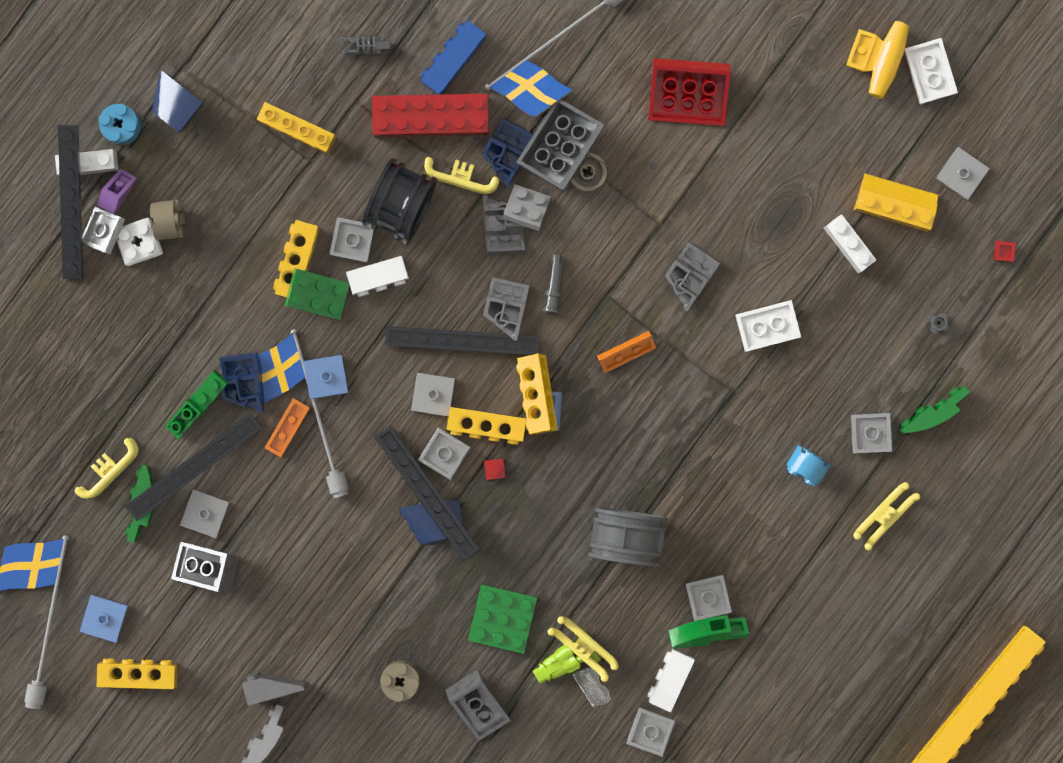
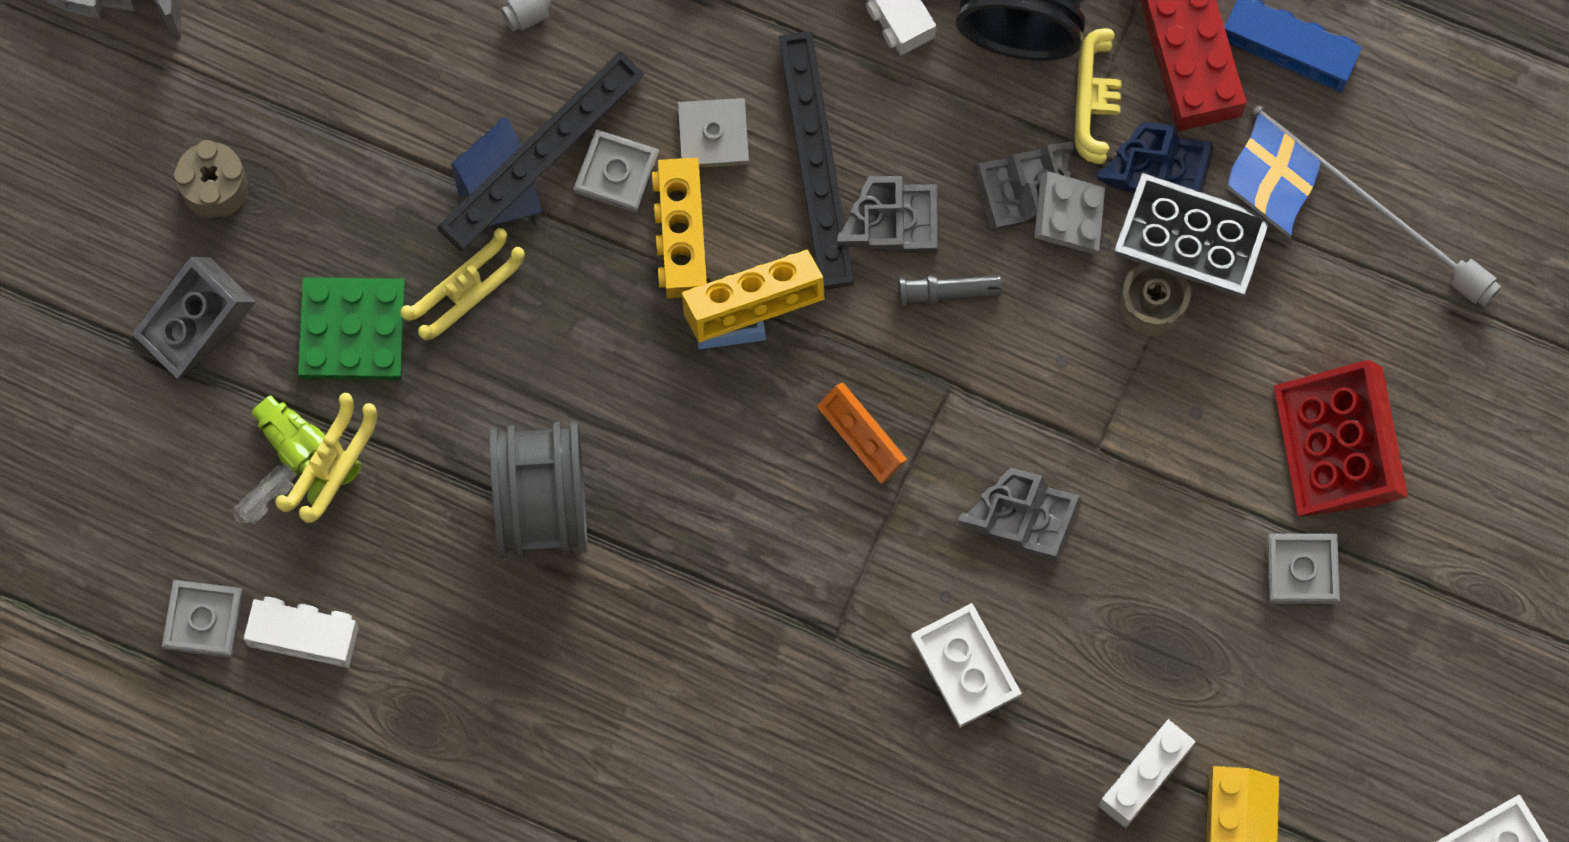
camera: 80 degrees right, 15 degrees down
(493, 552) = (465, 287): none -> light yellow piece
(494, 469) = (608, 260): red plate -> none
(707, 630) = (404, 677): green slope -> none
(708, 597) = (460, 666): light grey plate -> none
(755, 131) = (1303, 569): none -> light grey plate
(808, 465) = (733, 783): dark azure brick -> none
(879, 56) = (1492, 753): yellow plate -> none

